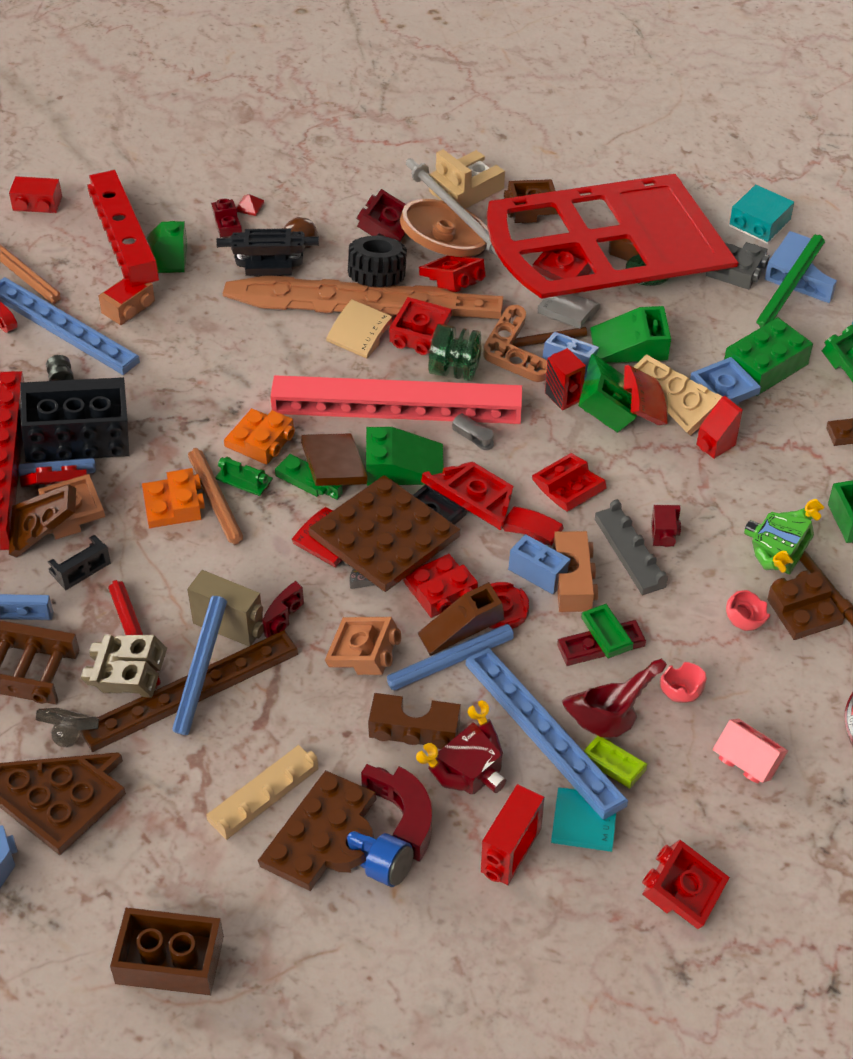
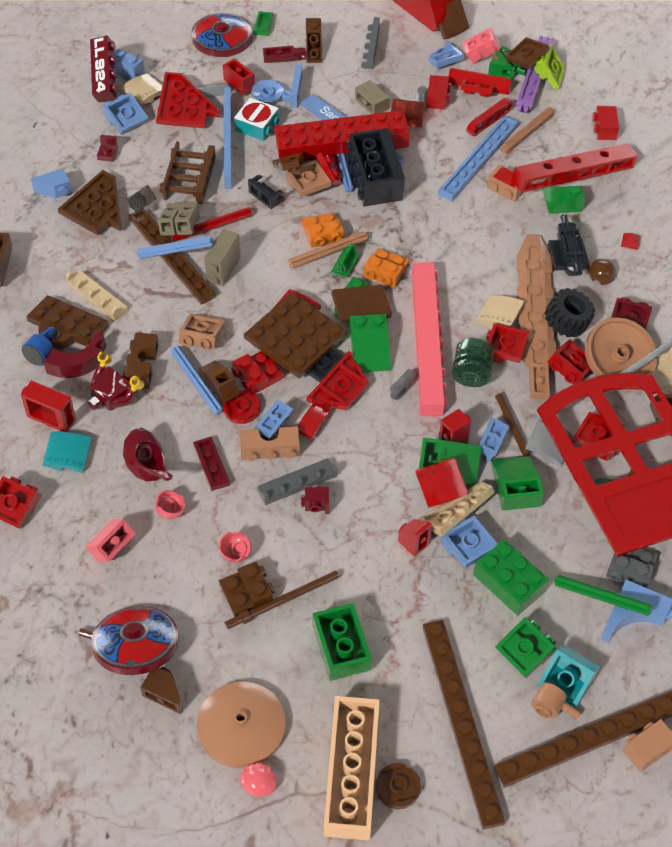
camera: 85 degrees right, 5 degrees up
(59, 368) = (429, 159): pearl dark grey wheel -> none
(226, 217) = (613, 227): dark red slope -> none
(277, 615) = (227, 287): dark red slope -> none
(504, 345) = (494, 398): nougat beam -> none
(547, 734) = (147, 419): medium blue tile -> none
(569, 482) = (360, 444): red slope -> none
(607, 631) = (215, 461): green tile -> none
(615, 761) = (108, 467): lime plate -> none
(783, 536) = (299, 571): bright green torso -> none

